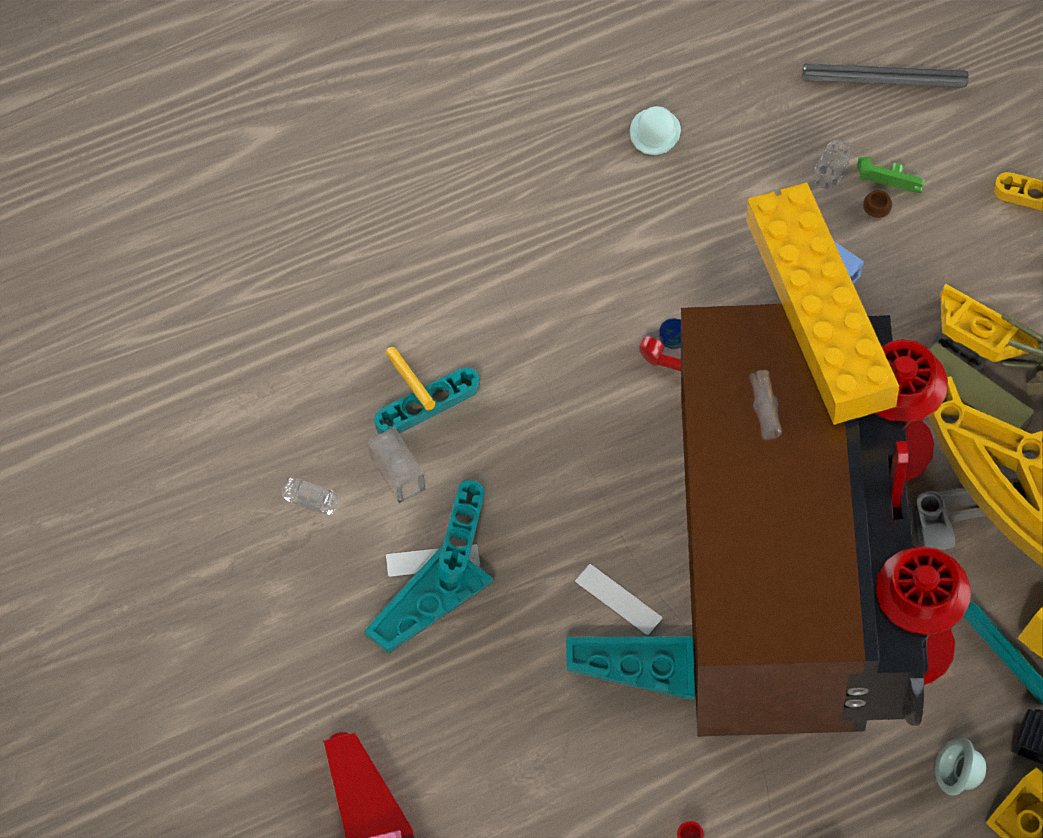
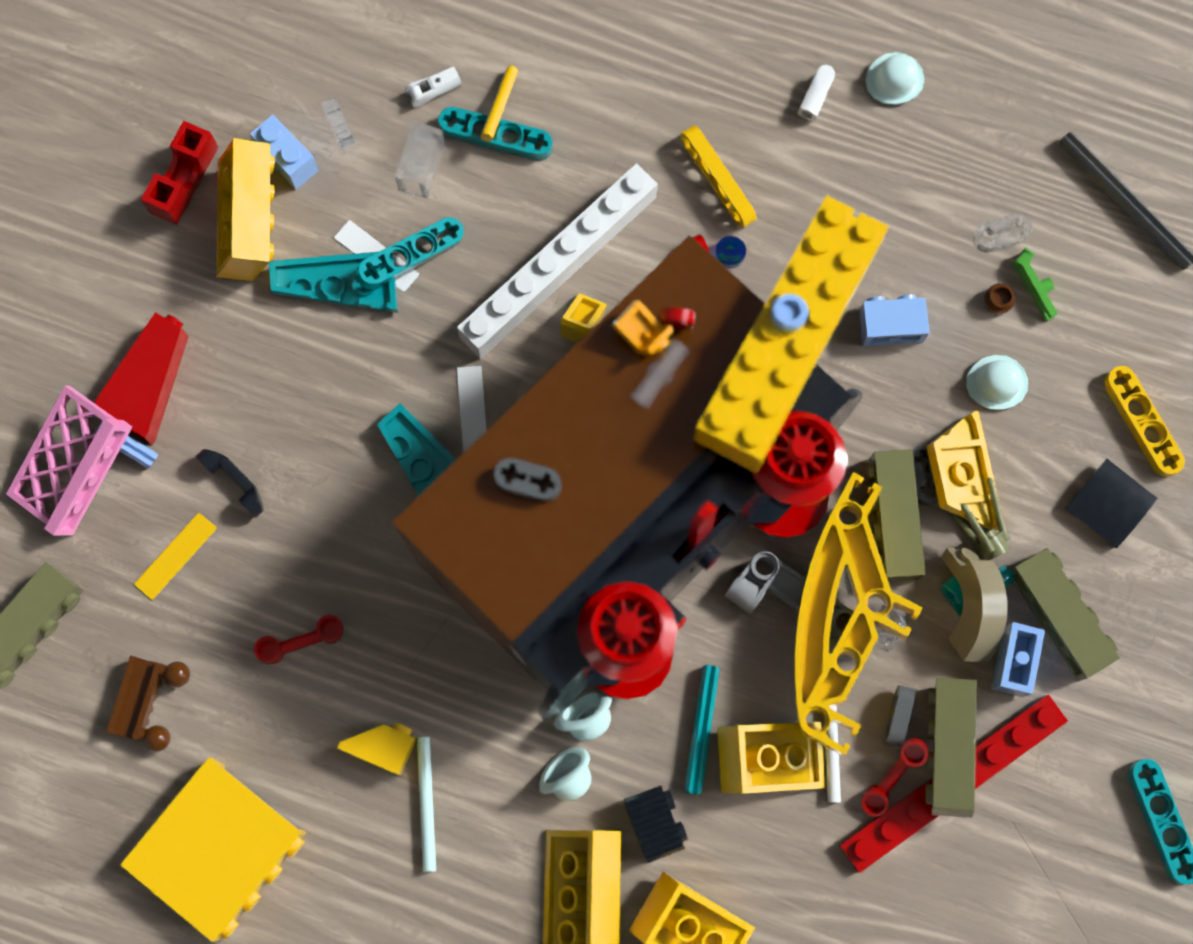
camera: 40 degrees right, 15 degrees up
(231, 631) = (191, 155): none -> red arch
(291, 548) = (290, 156): none -> light blue brick
(312, 610) = (244, 210): none -> yellow brick
(348, 408) = (438, 84): none -> white bar
(475, 806) = (251, 499): none -> black bar
(569, 444) = (557, 261): none -> white brick
(612, 292) = (718, 176): none -> yellow beam
(616, 183) = (816, 93): none -> white bar
(628, 467) = (581, 317): none -> yellow slope
(724, 388) = (642, 329): none -> light orange bracket
(737, 360) = (677, 317): none -> red tile
(761, 557) = (526, 488): none -> dark grey beam
(812, 283) = (789, 313): none -> light blue tile
(935, 257) = (997, 382): none -> light aqua hat
(935, 719) = (586, 716): none -> light aqua hat

